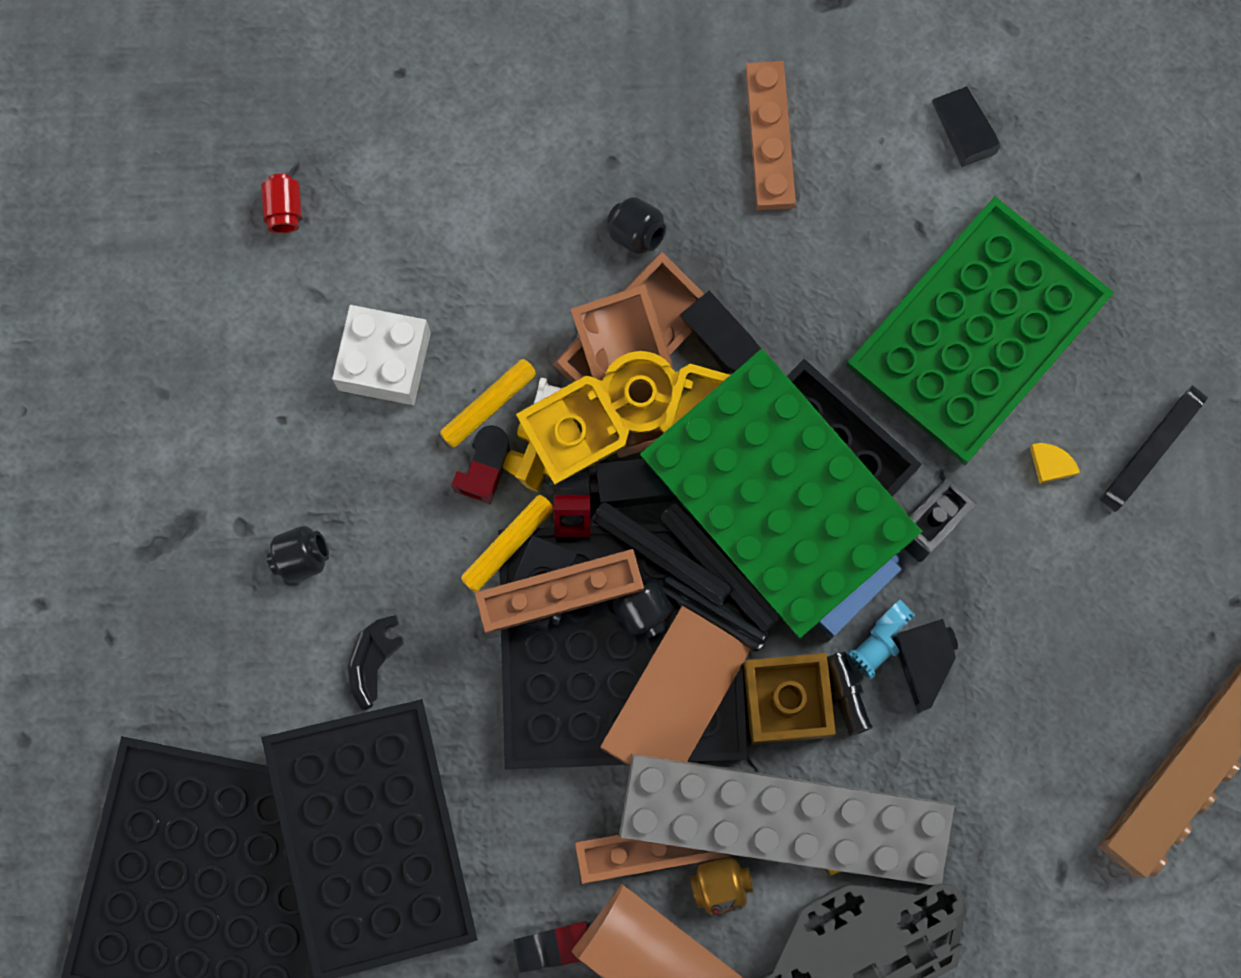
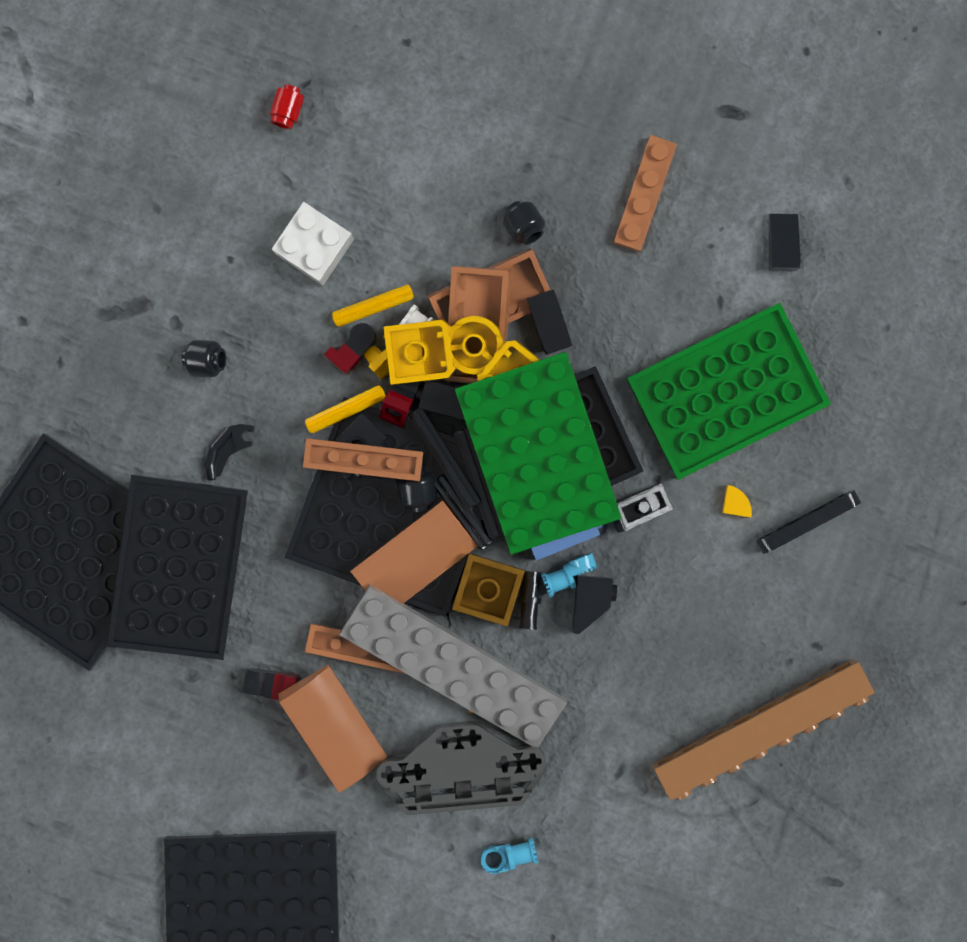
camera: 25 degrees right, 10 degrees up
(721, 886) = (394, 690): pearl gold head -> none

